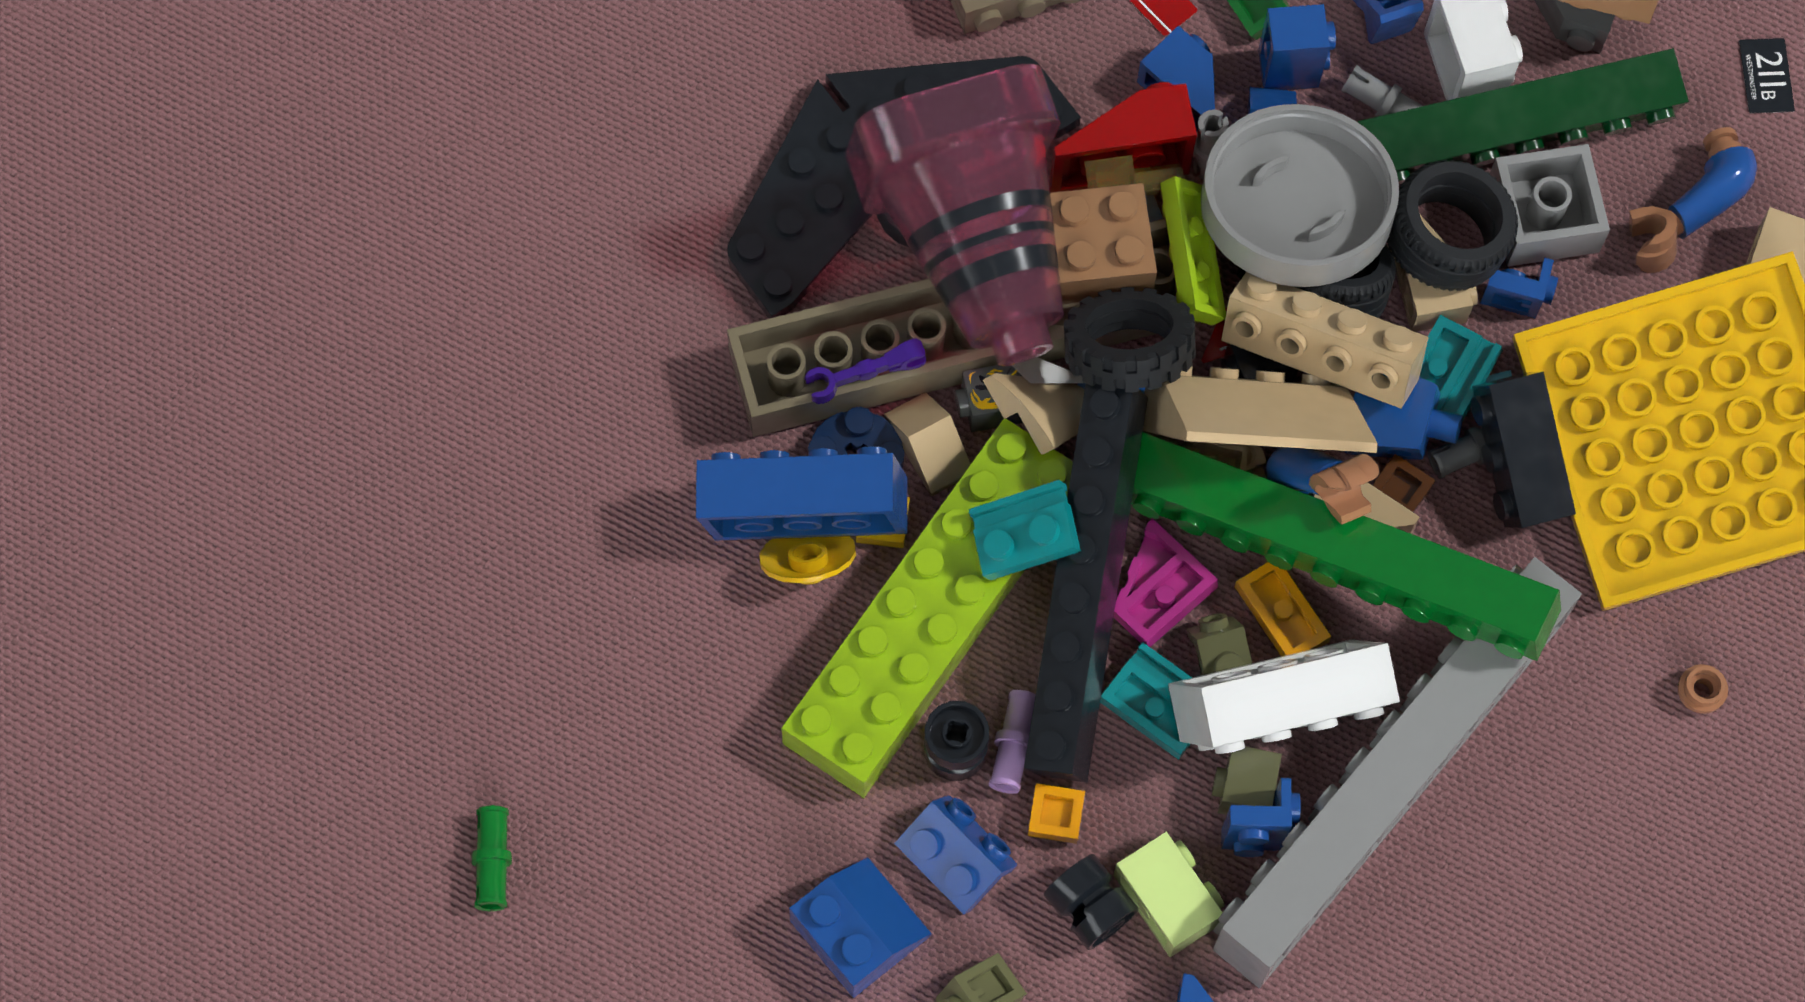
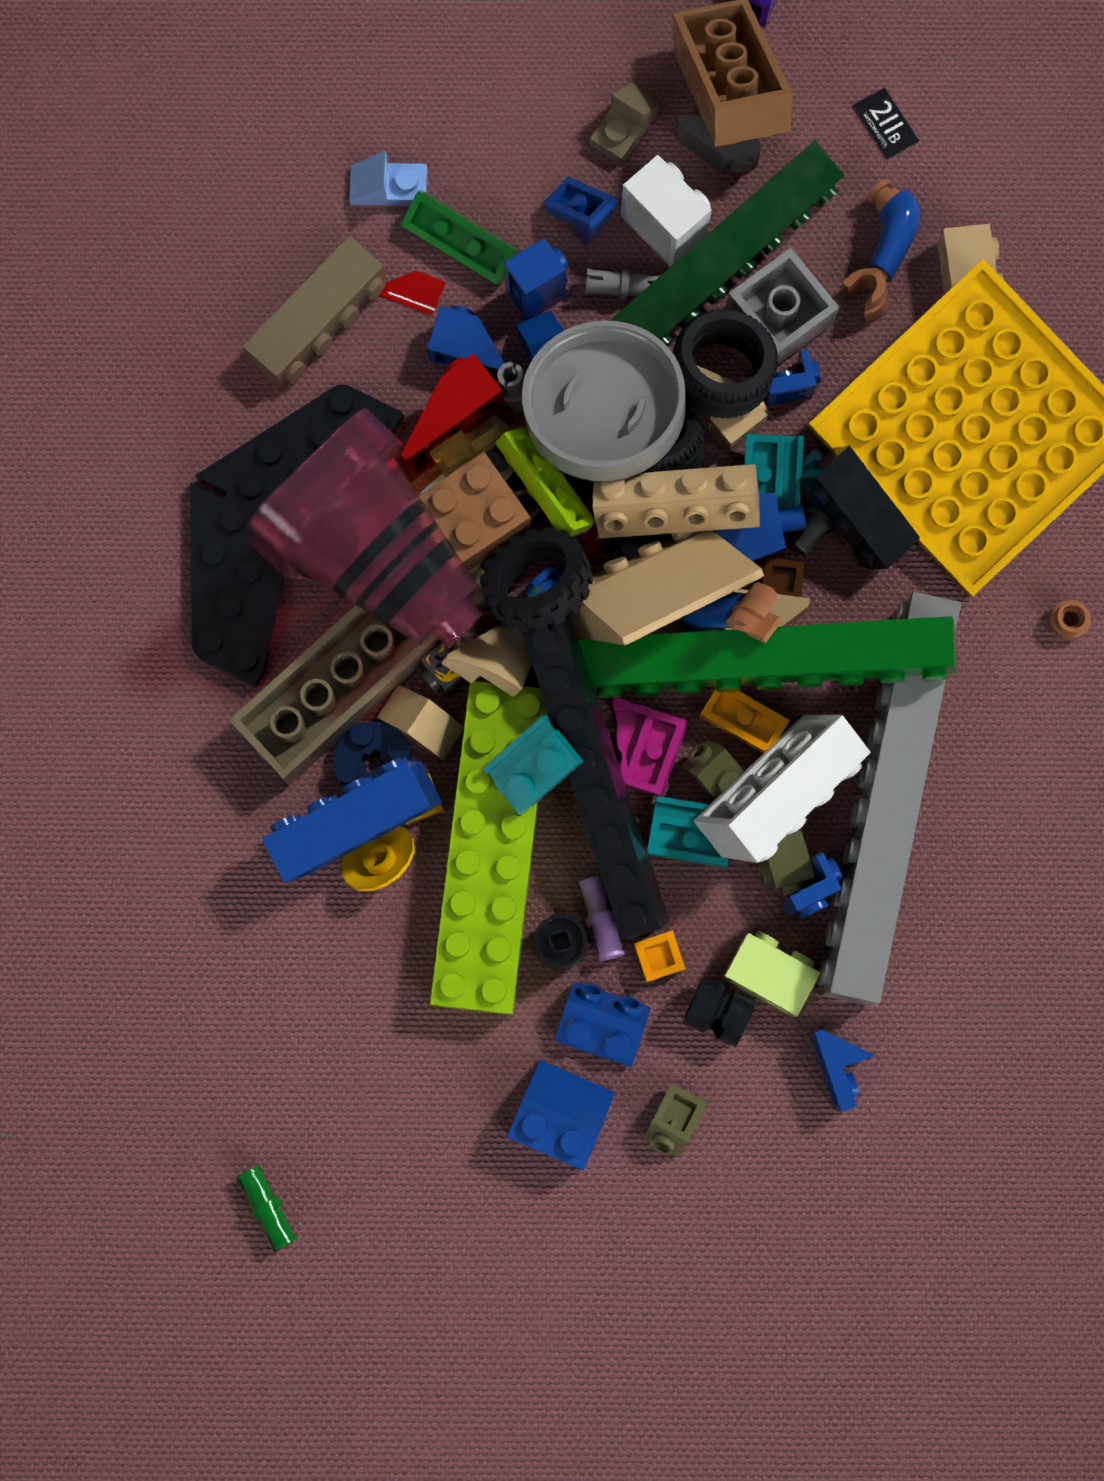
camera: 25 degrees left, 10 degrees up
(905, 356) = (372, 676): dark purple piece -> none
(1041, 371) = (482, 630): white sticker -> none

